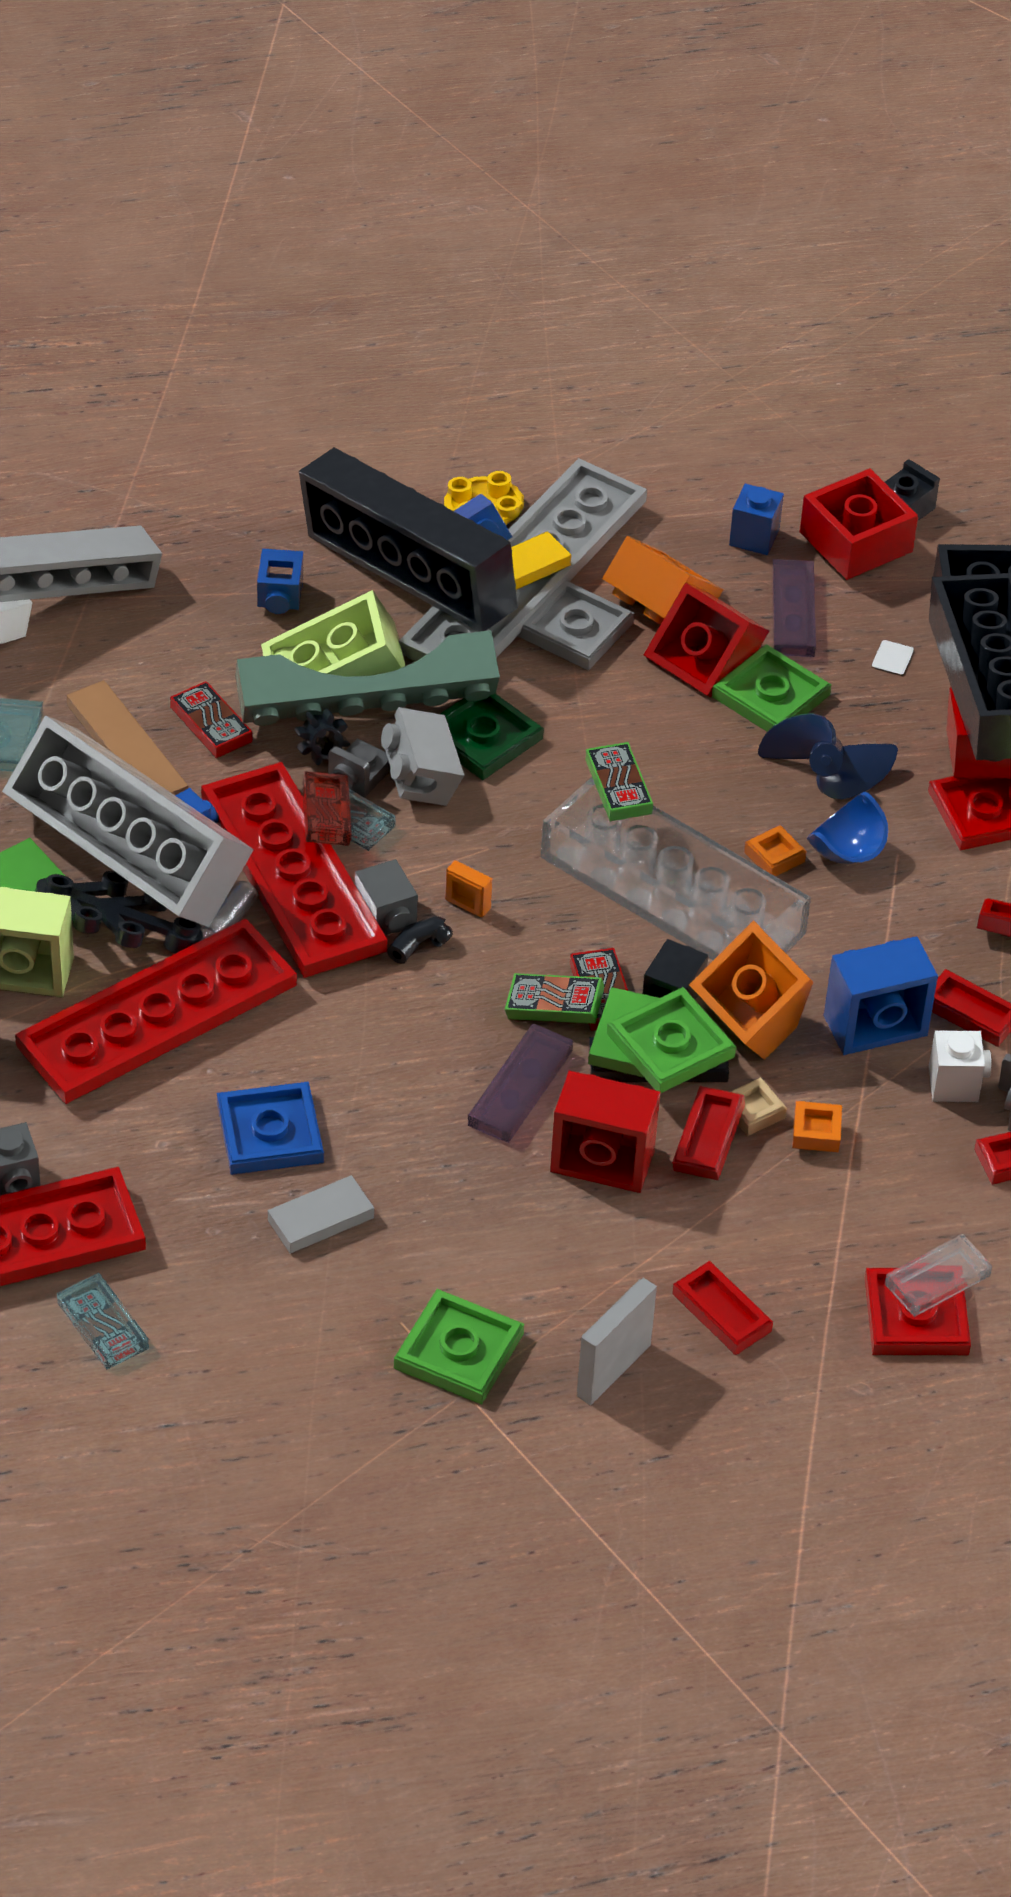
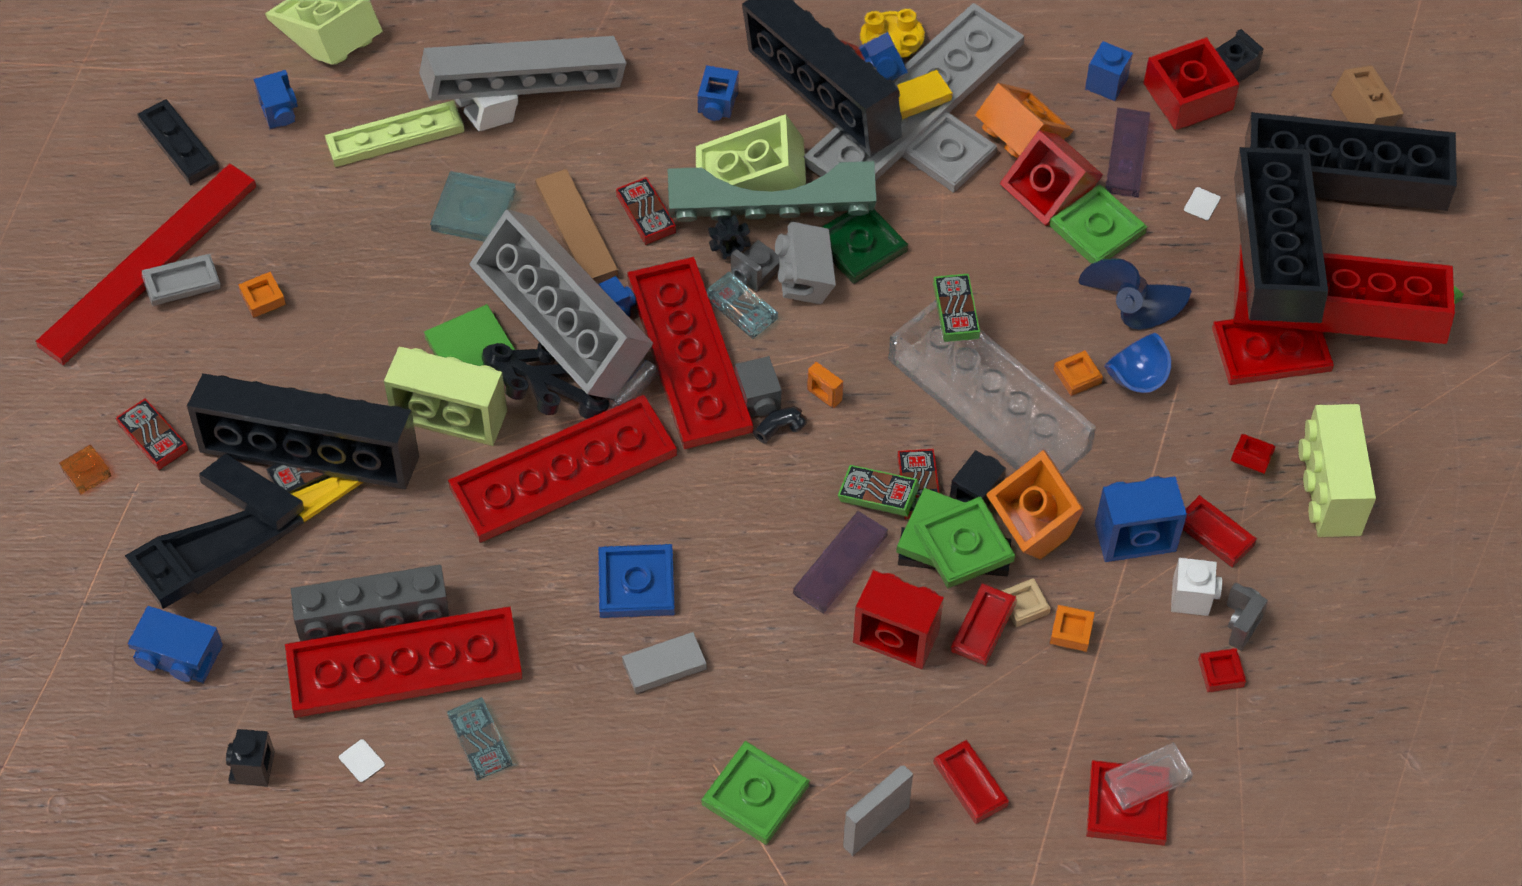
camera: 10 degrees right, 10 degrees up
(326, 808) = (722, 303): clear red tile -> none

